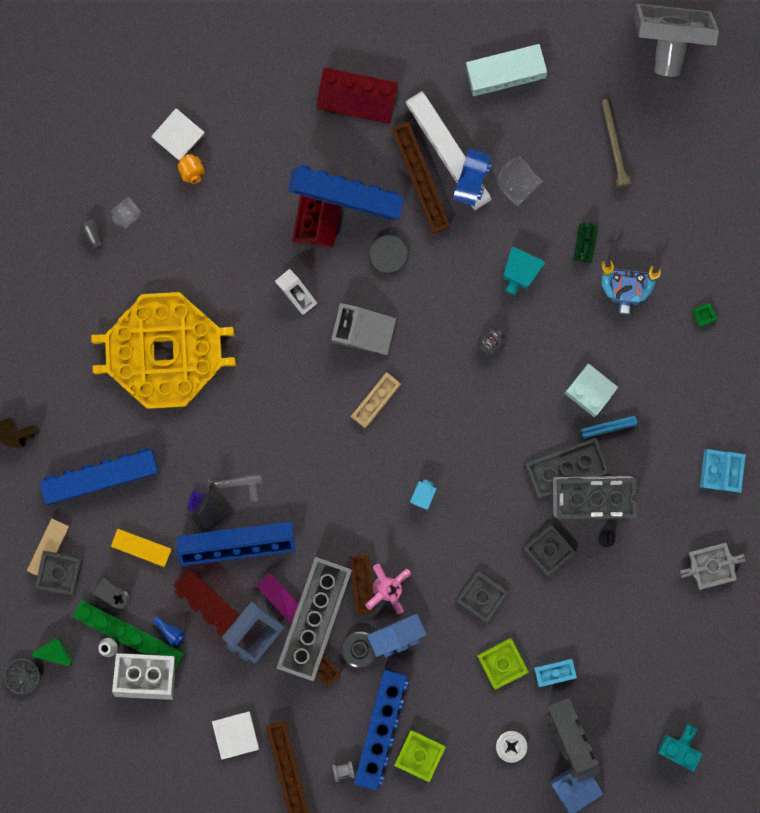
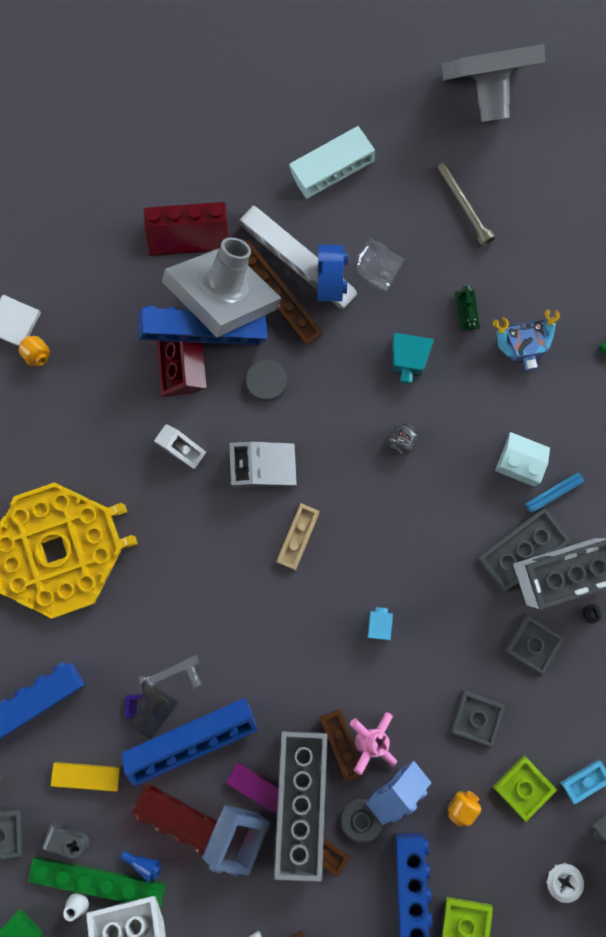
camera: 15 degrees left, 5 degrees down
(372, 164) = (222, 287): none -> light grey piece
(447, 664) = (464, 808): none -> light orange head

